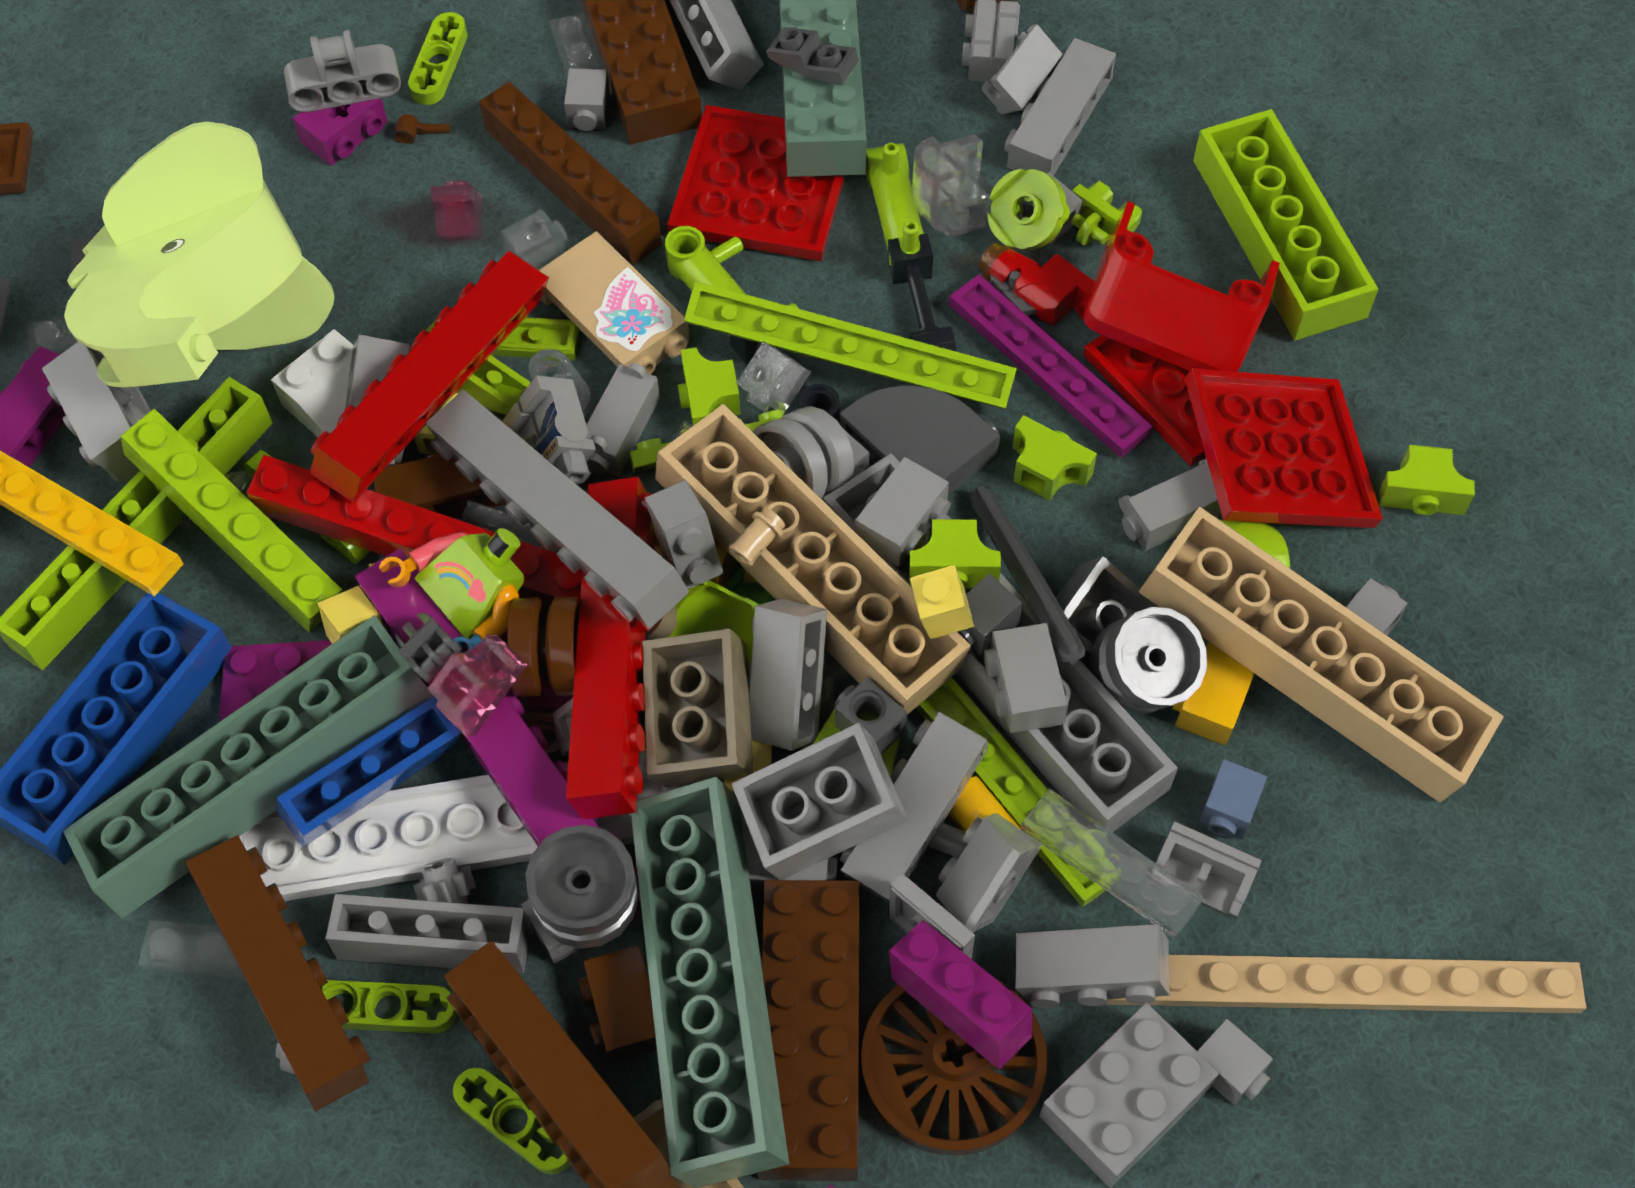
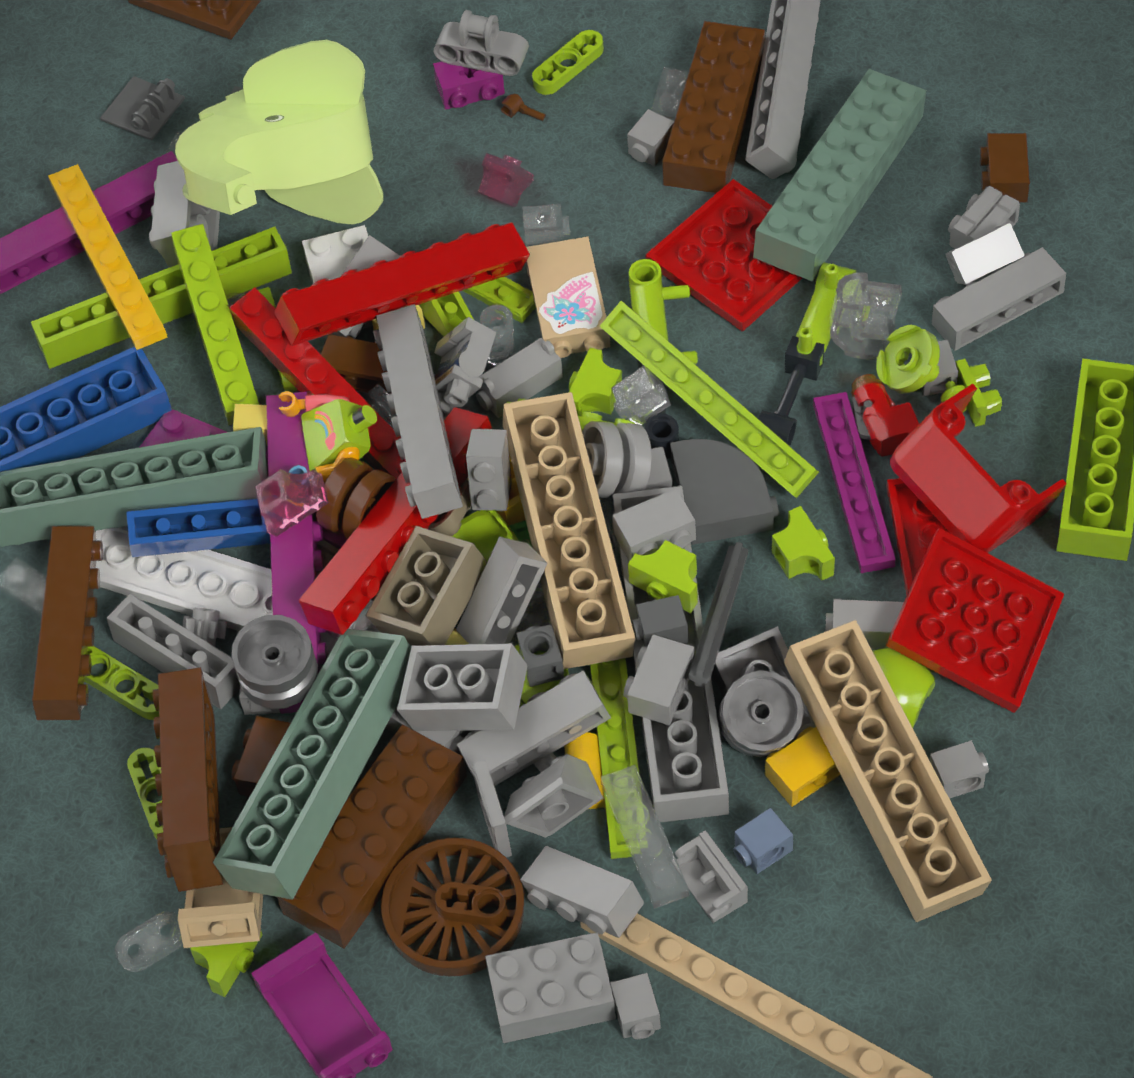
camera: 35 degrees right, 5 degrees down
(427, 647) = (274, 458): dark grey arm -> none
(571, 173) = (602, 187): reddish brown brick -> none
(757, 536) = (530, 491): tan pin -> none
(804, 54) = (814, 174): dark grey slope -> none
(942, 602) = (625, 594): light yellow brick -> none
(961, 994) = (475, 859): magenta brick -> none
(1427, 483) = (1072, 698): lime brick -> none

